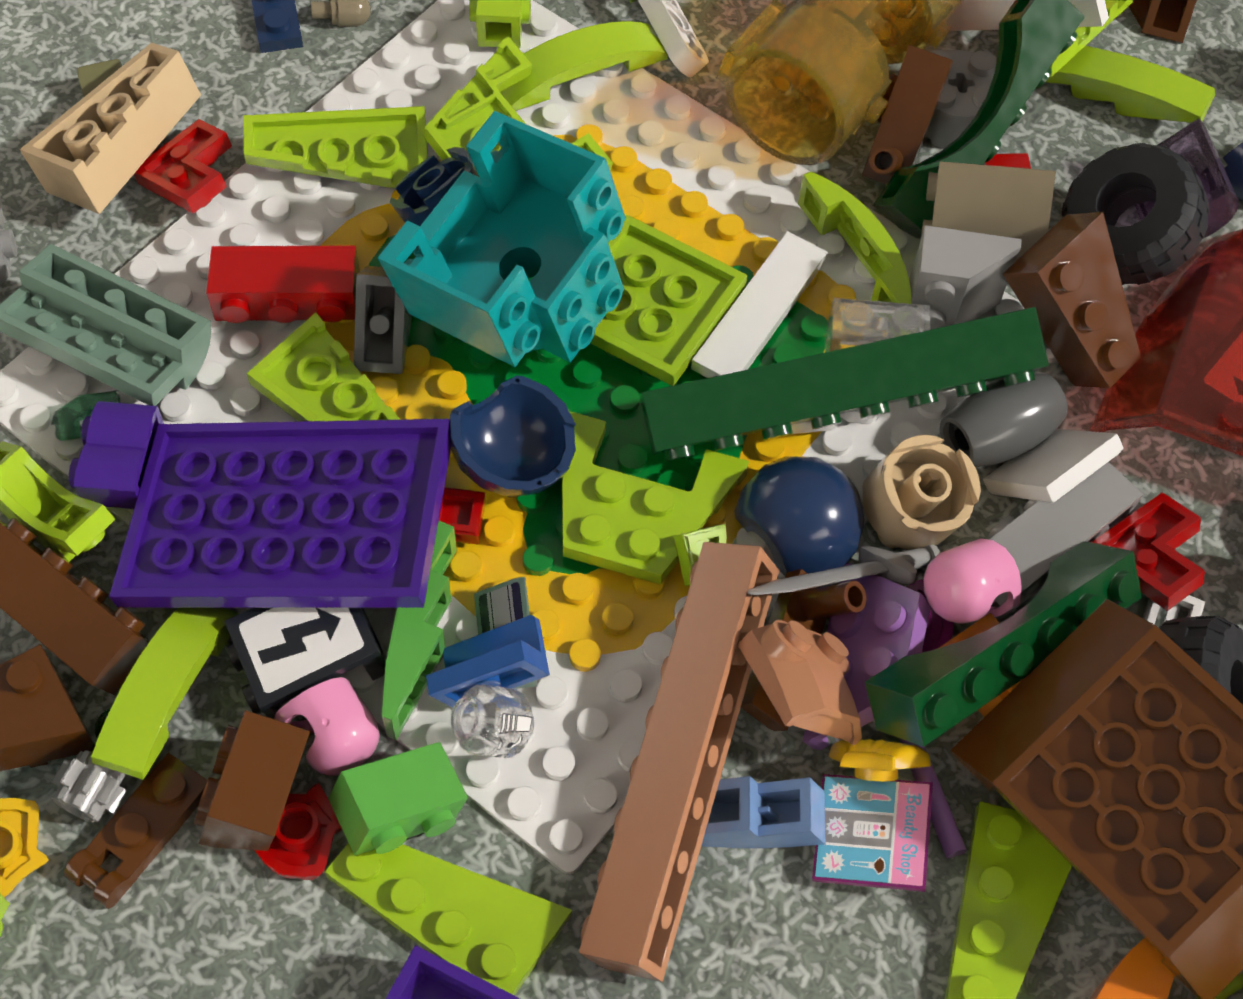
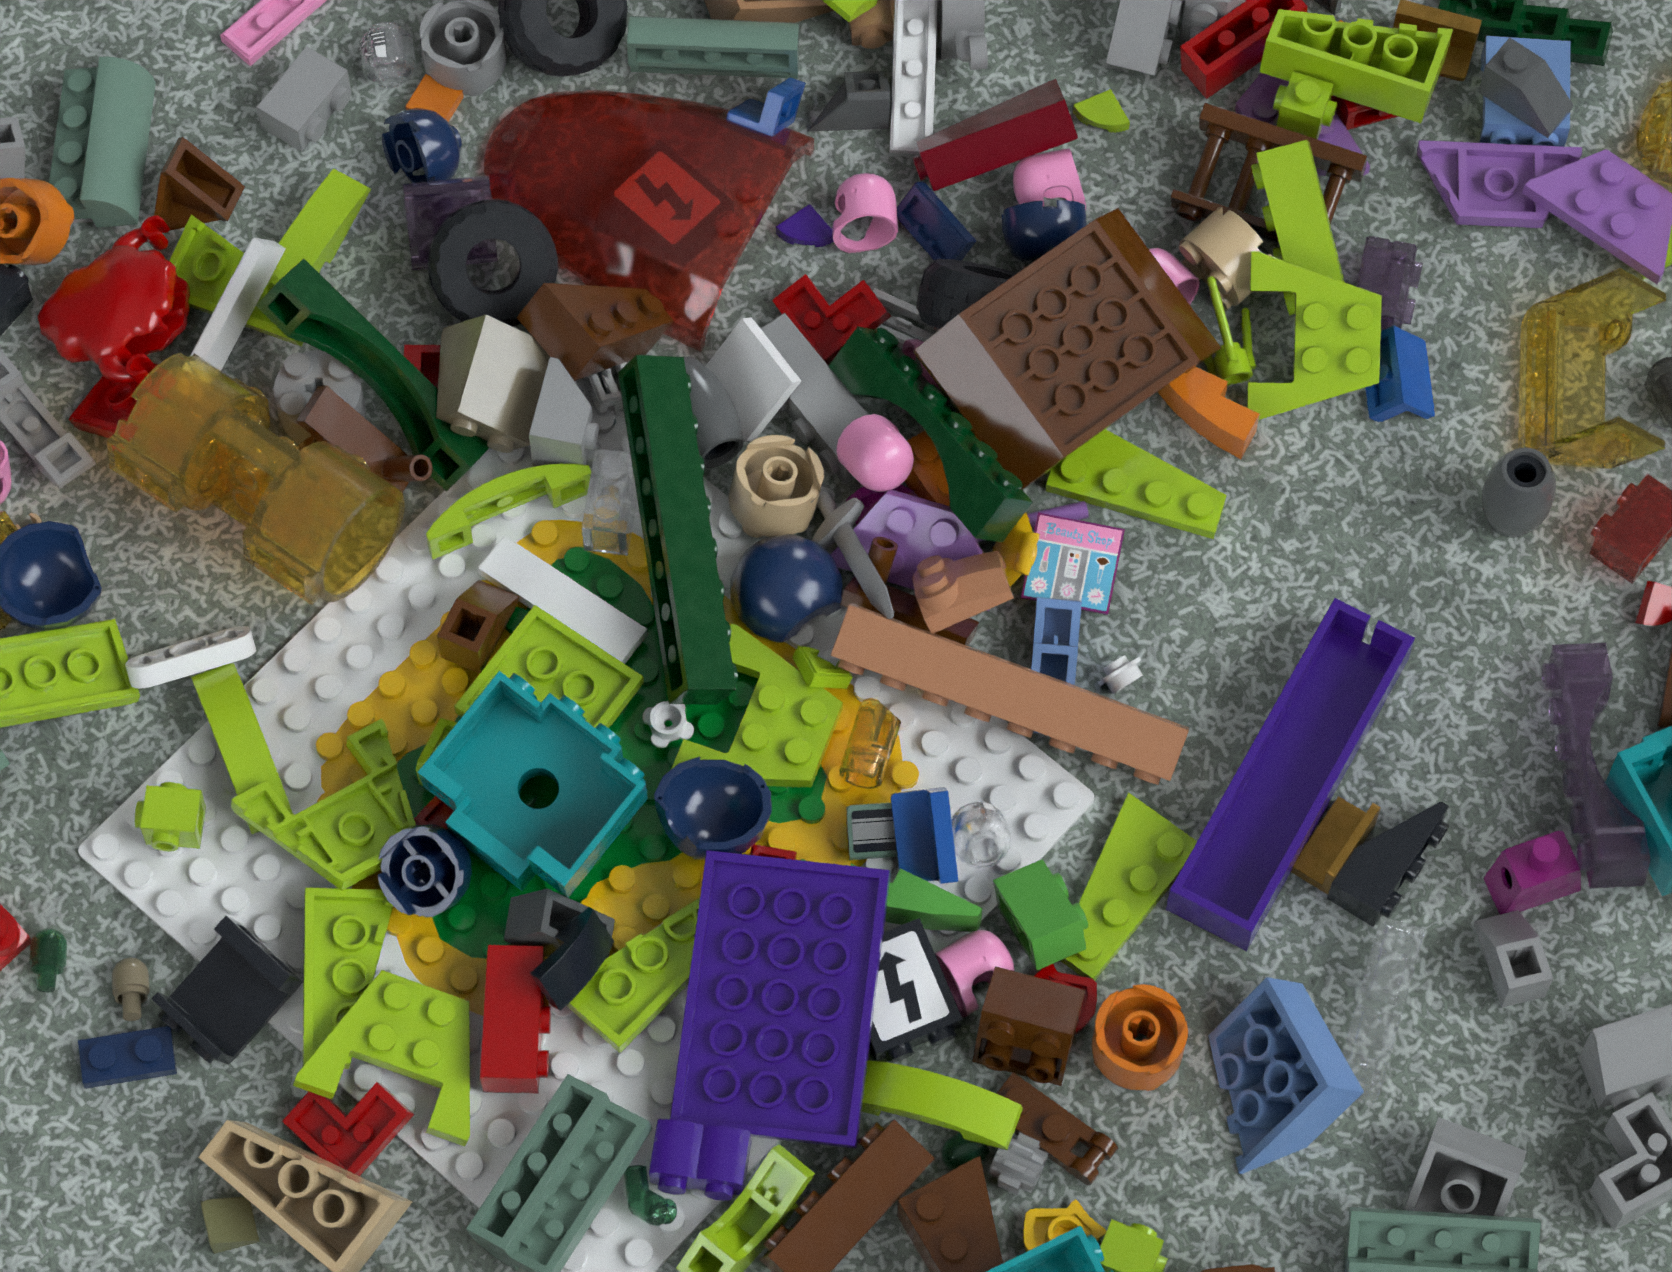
camera: 85 degrees left, 5 degrees up
(227, 892) = (1145, 1062): none -> orange brick
(274, 198) = (411, 1034): none -> lime wing
(322, 71) = (228, 994): none -> black panel
(336, 319) = (572, 965): none -> black slope
(608, 604) = (869, 745): none -> clear yellow arm
(623, 397) = (662, 712): none -> white plate
(721, 225) = (476, 625): none -> reddish brown slope
(731, 896) = (1121, 673): none -> white plate

